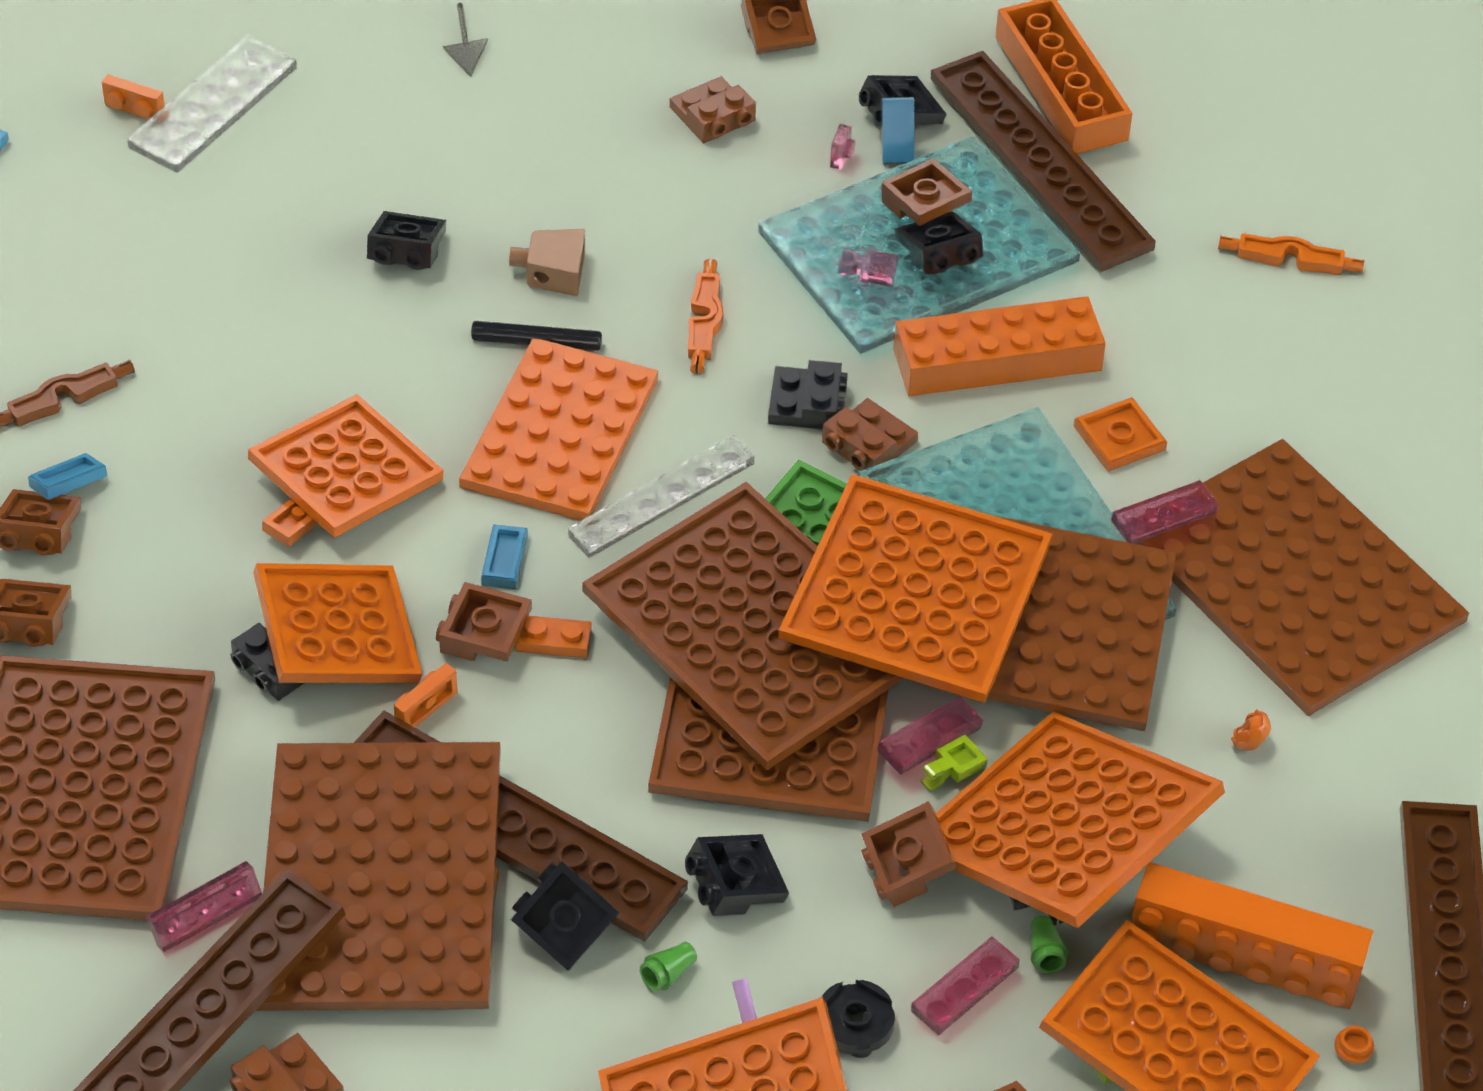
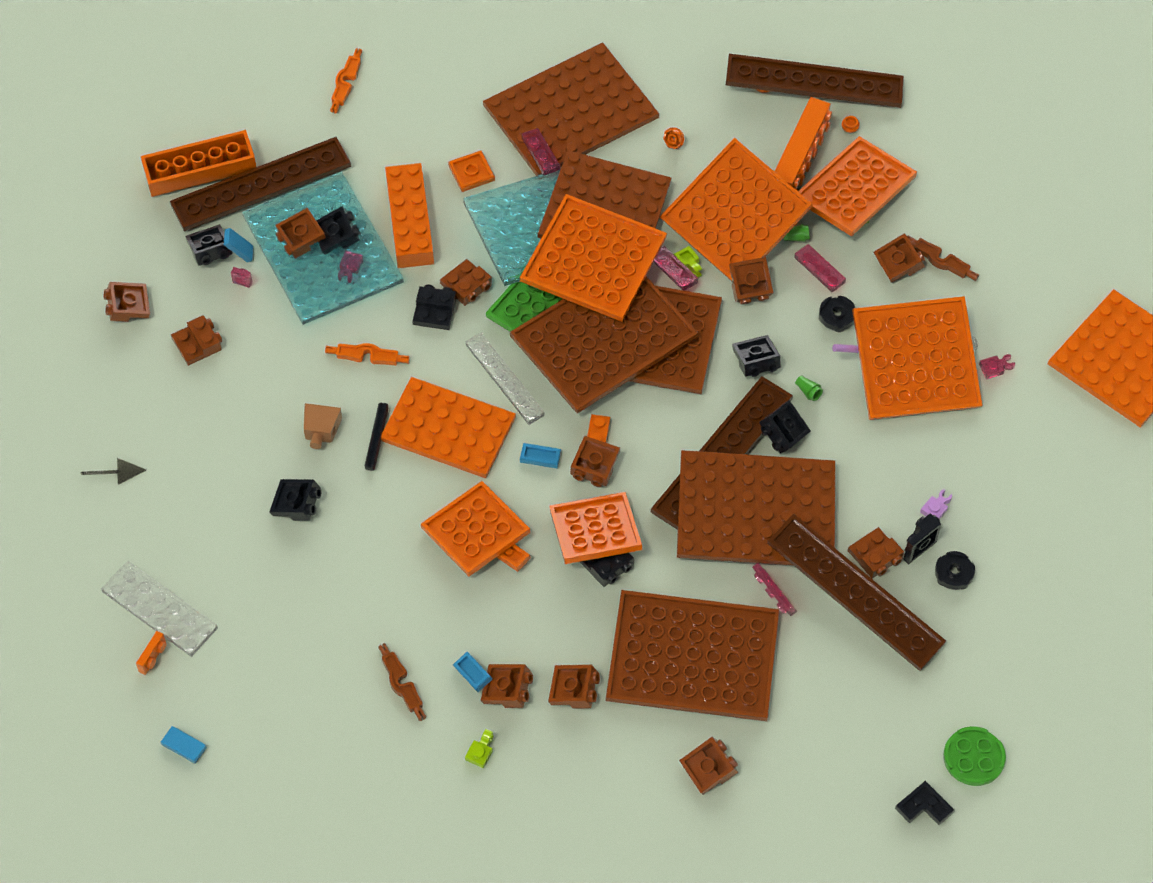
camera: 85 degrees left, 10 degrees up
(427, 696) = (642, 490): orange plate -> none

